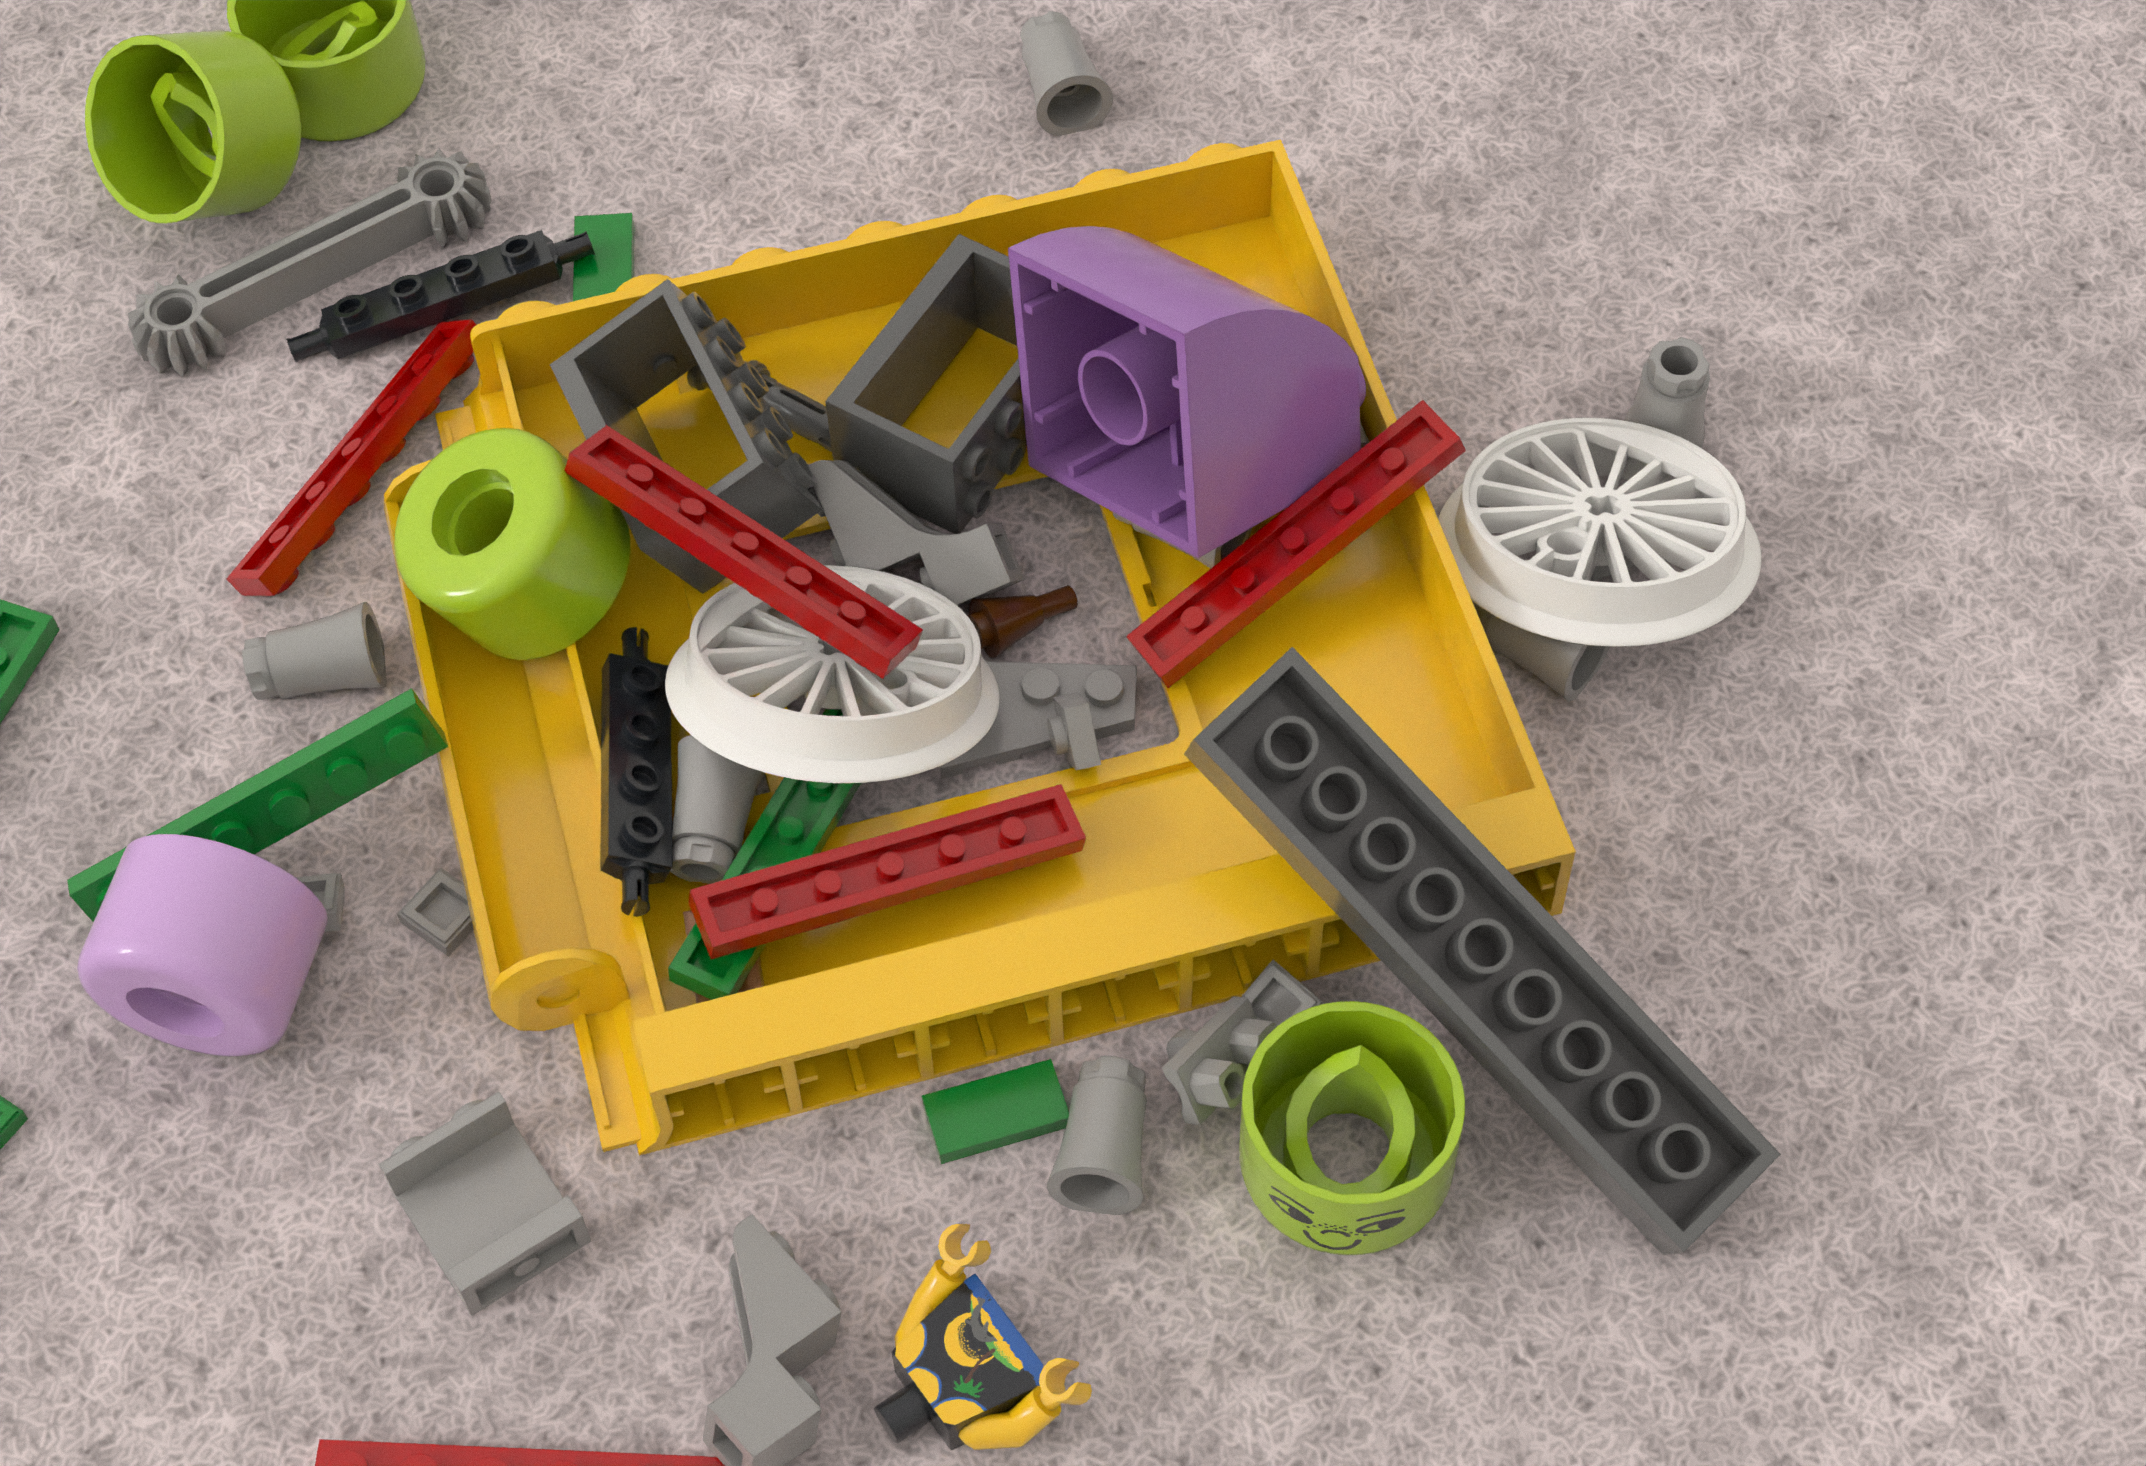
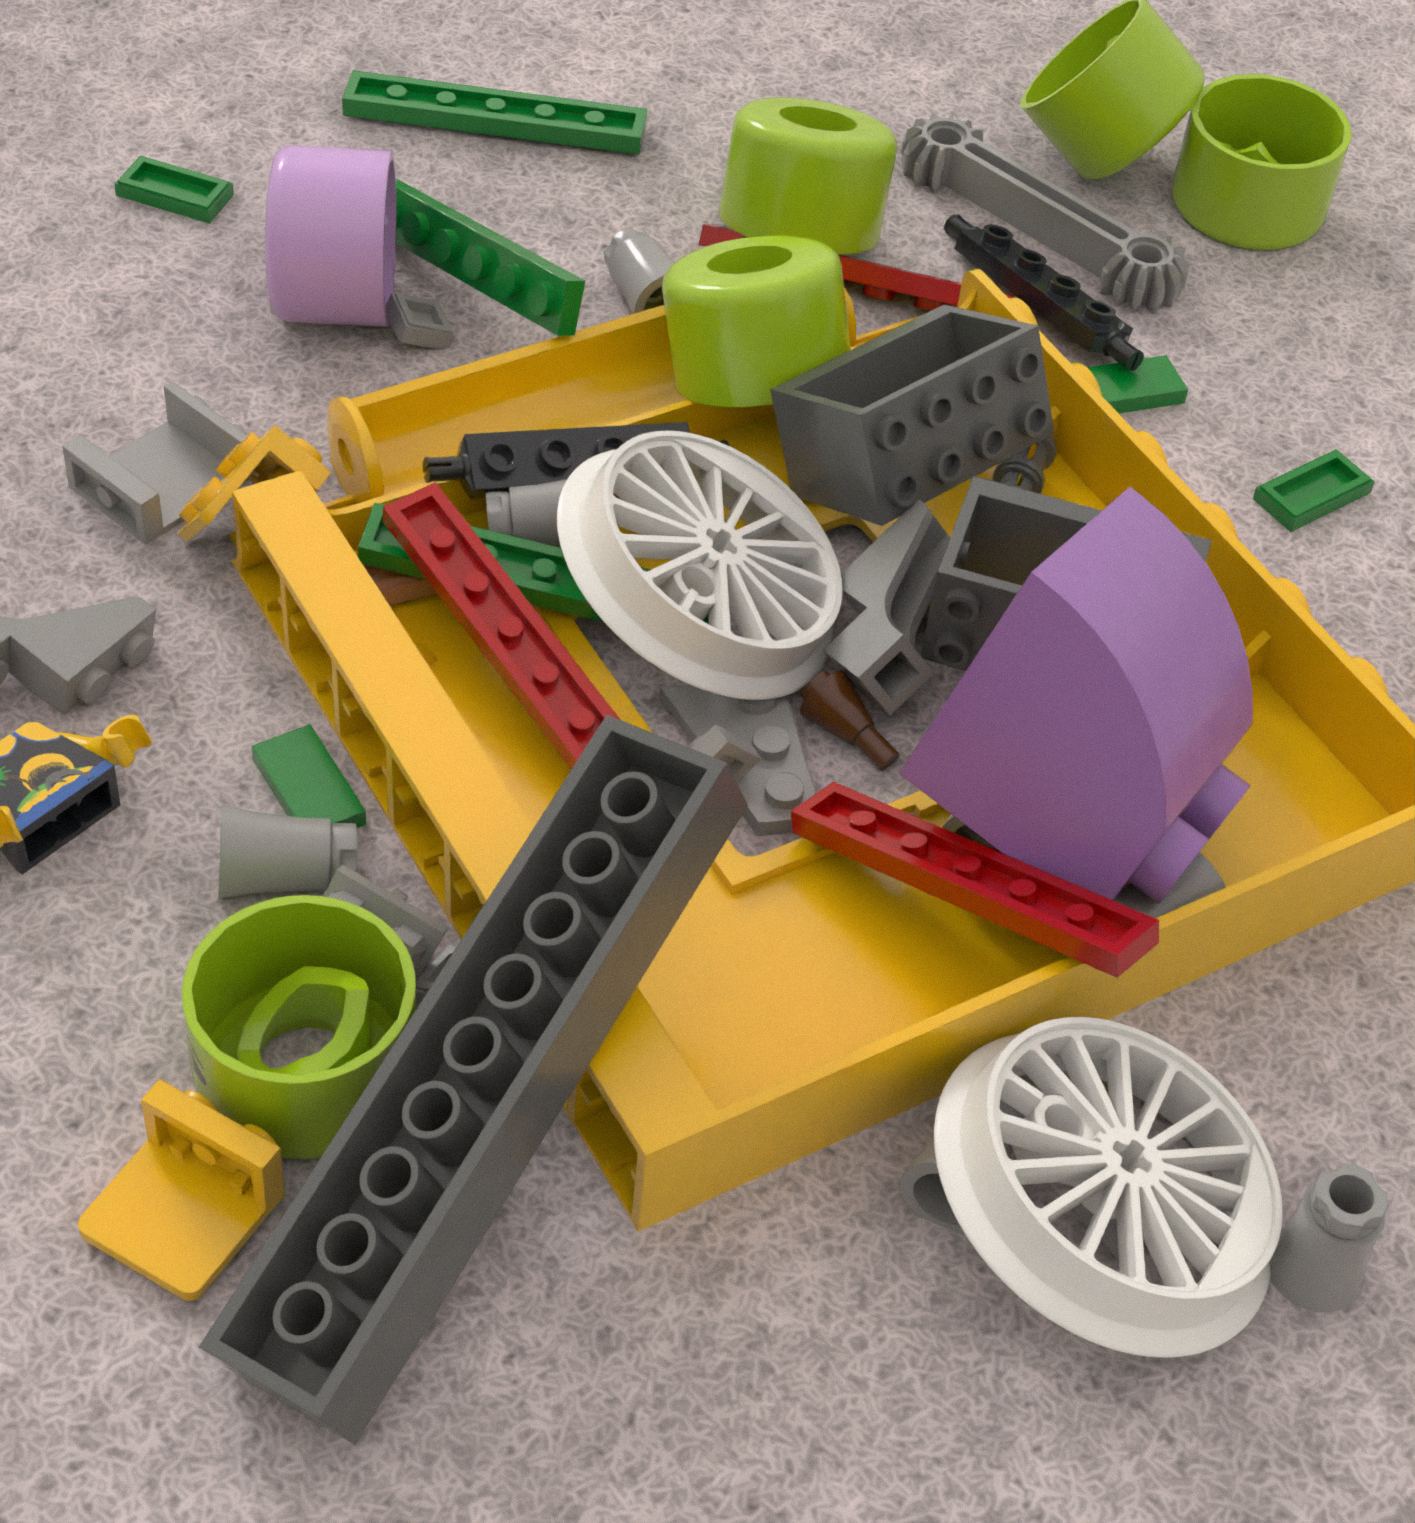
camera: 70 degrees right, 10 degrees down
(235, 452) = (808, 173): none -> lime piece
(584, 1105) = (255, 460): none -> yellow bracket
(744, 551) = (767, 434): red plate -> none
(795, 156) = (1313, 490): none -> green tile
(1491, 1268) = (186, 1193): none -> yellow bracket

